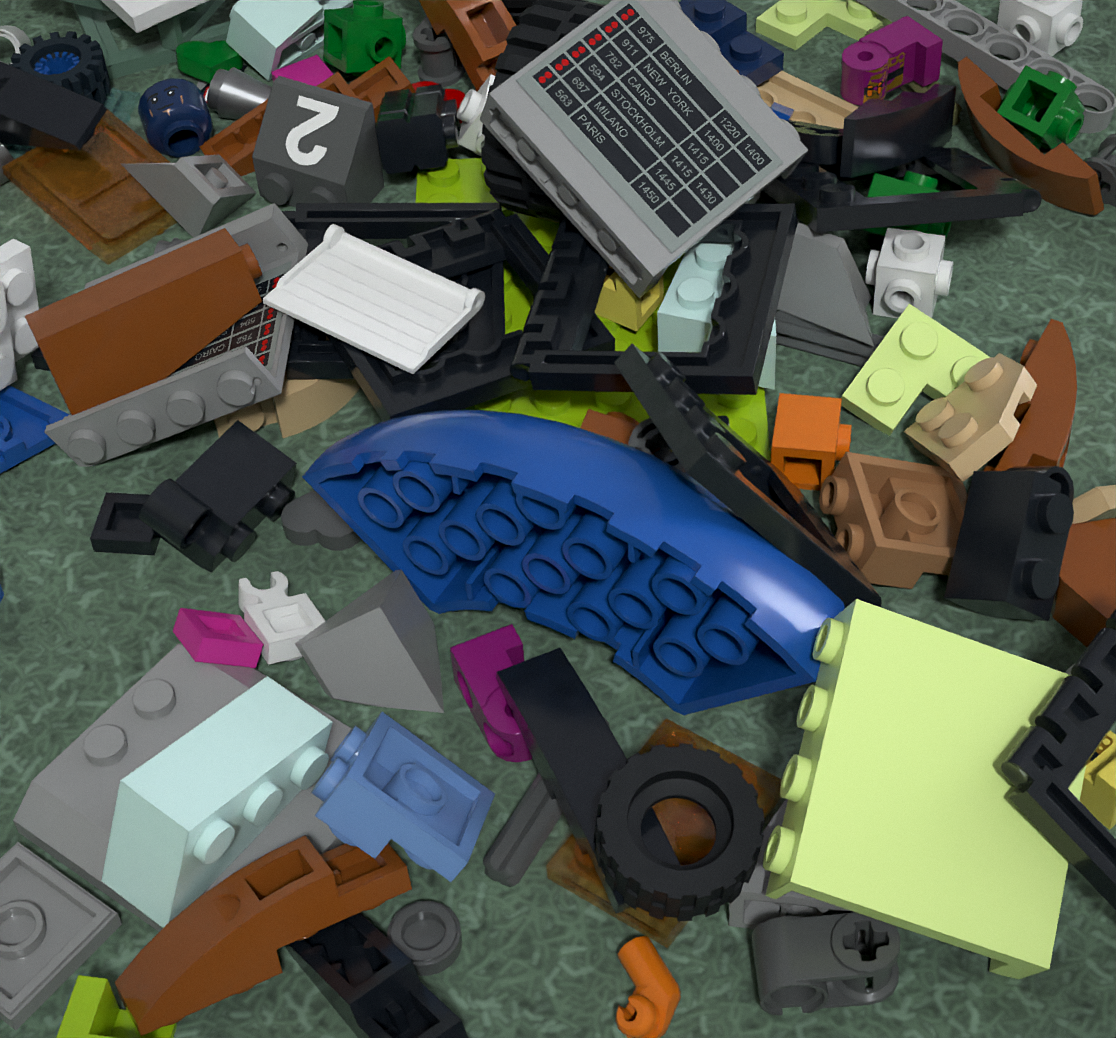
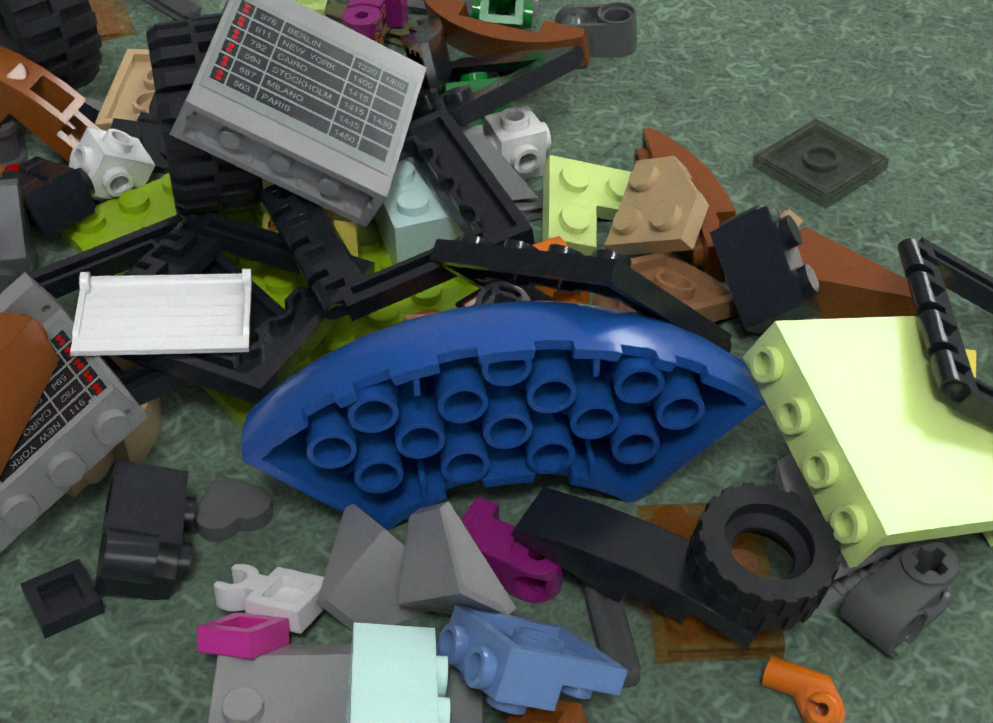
camera: 40 degrees left, 5 degrees down
(408, 683) = (446, 566): none -> light grey slope

